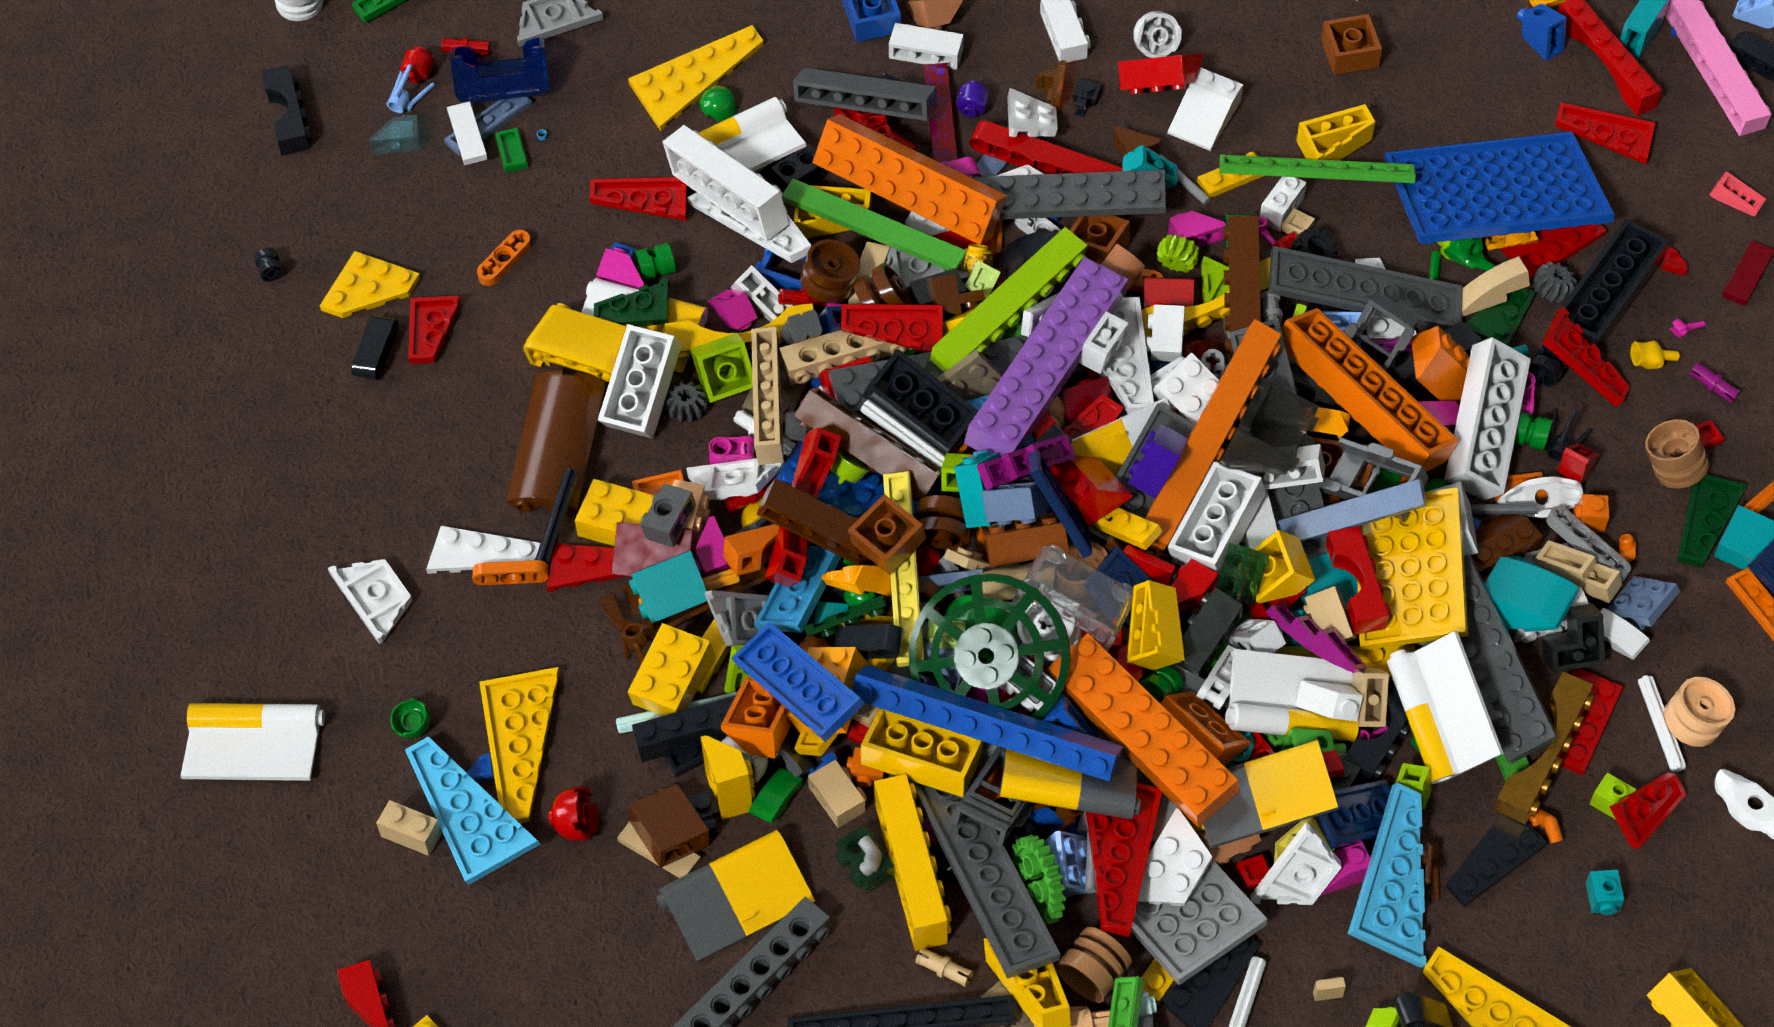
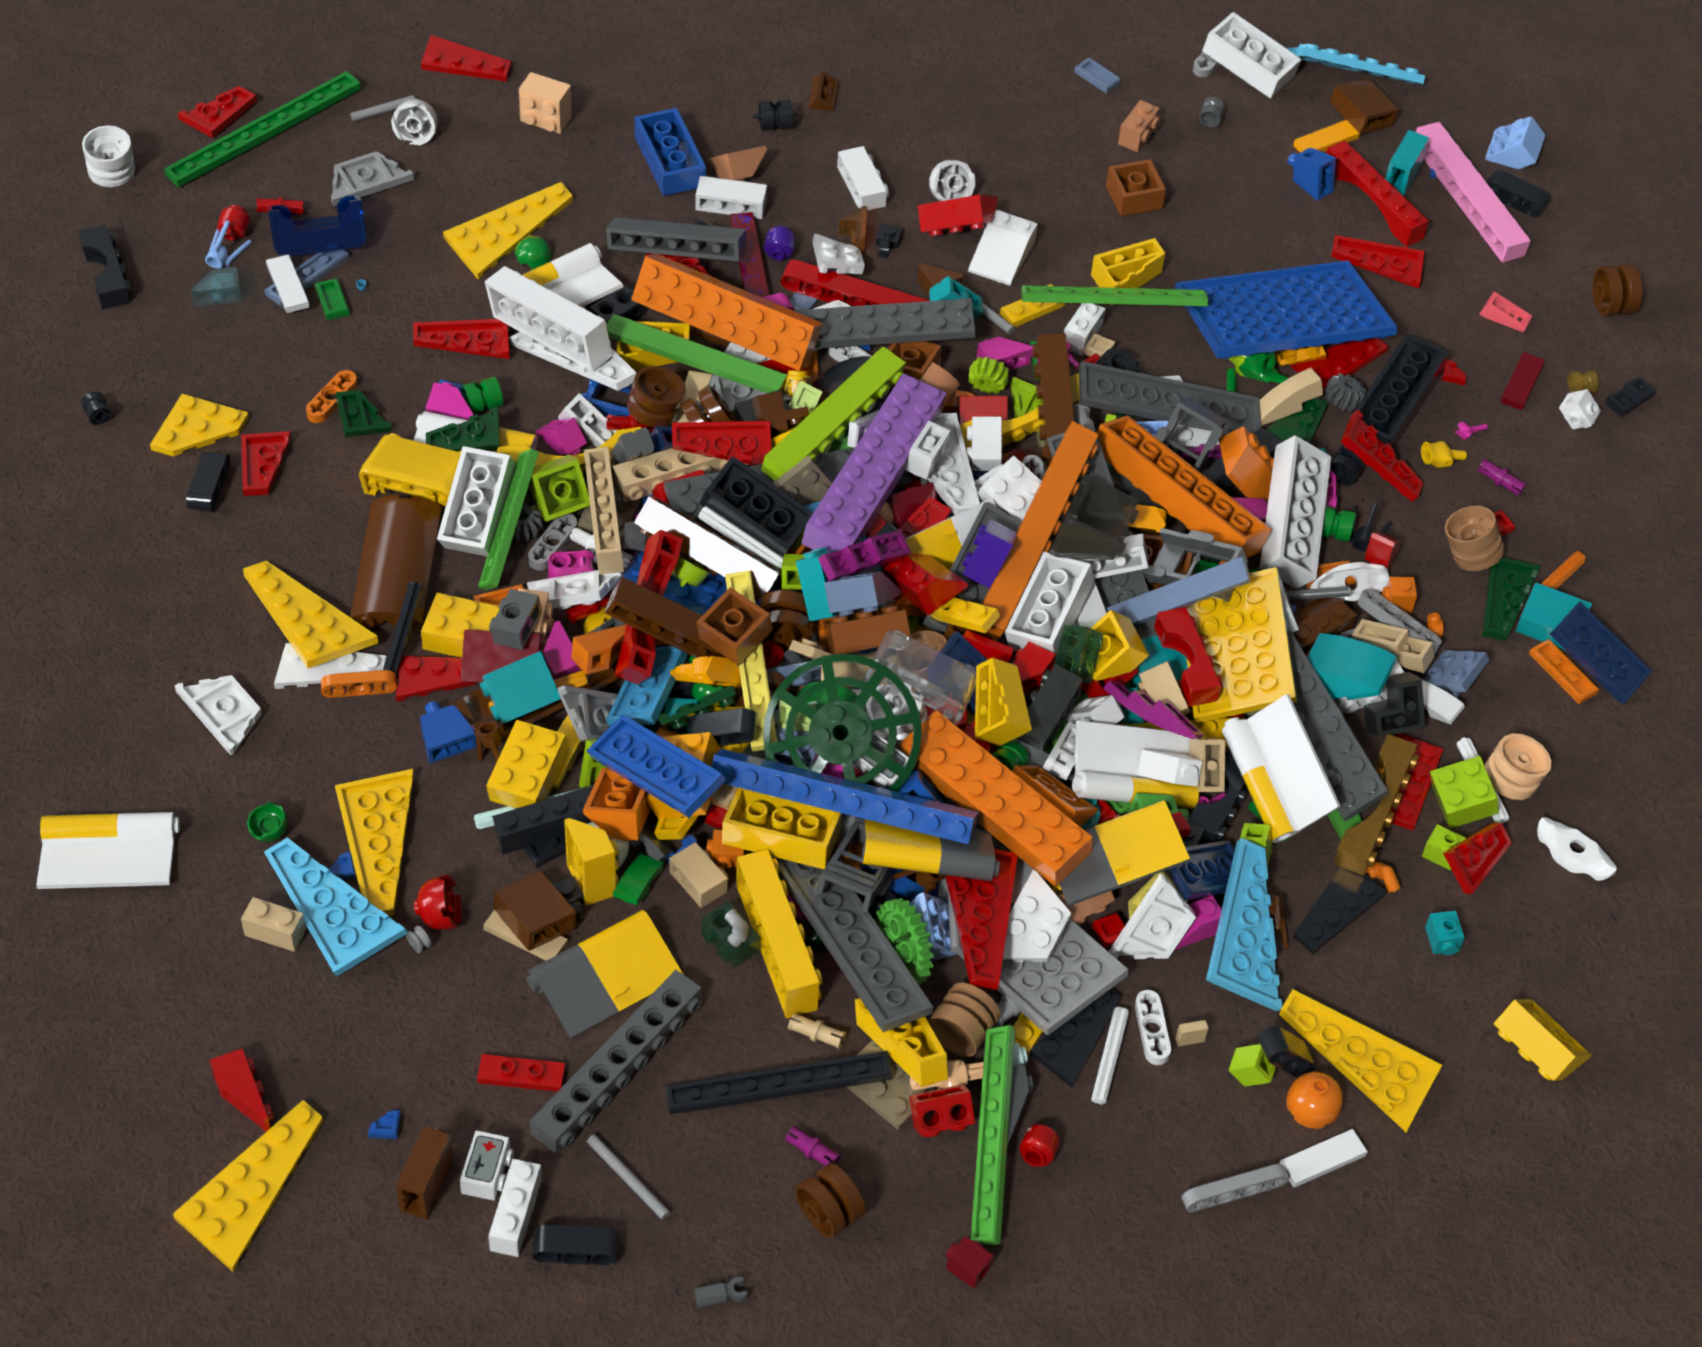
camera: 10 degrees left, 5 degrees down
(464, 503) = (308, 622): none -> yellow wing
(530, 280) = (358, 415): none -> dark green wing
(551, 850) = (418, 939): none -> light grey bush
(592, 628) = (445, 732): none -> blue torso
(644, 996) = (521, 1073): none -> red plate
(670, 401) = (508, 519): none -> bright green tile
(717, 413) = (552, 532): none -> light grey beam
(1060, 503) = (901, 591): dark blue tile -> none
(1138, 953) = (1007, 1009): none -> light grey bush
(1295, 960) = (1156, 1016): none -> white beam
(1640, 737) = (1464, 792): none -> lime brick

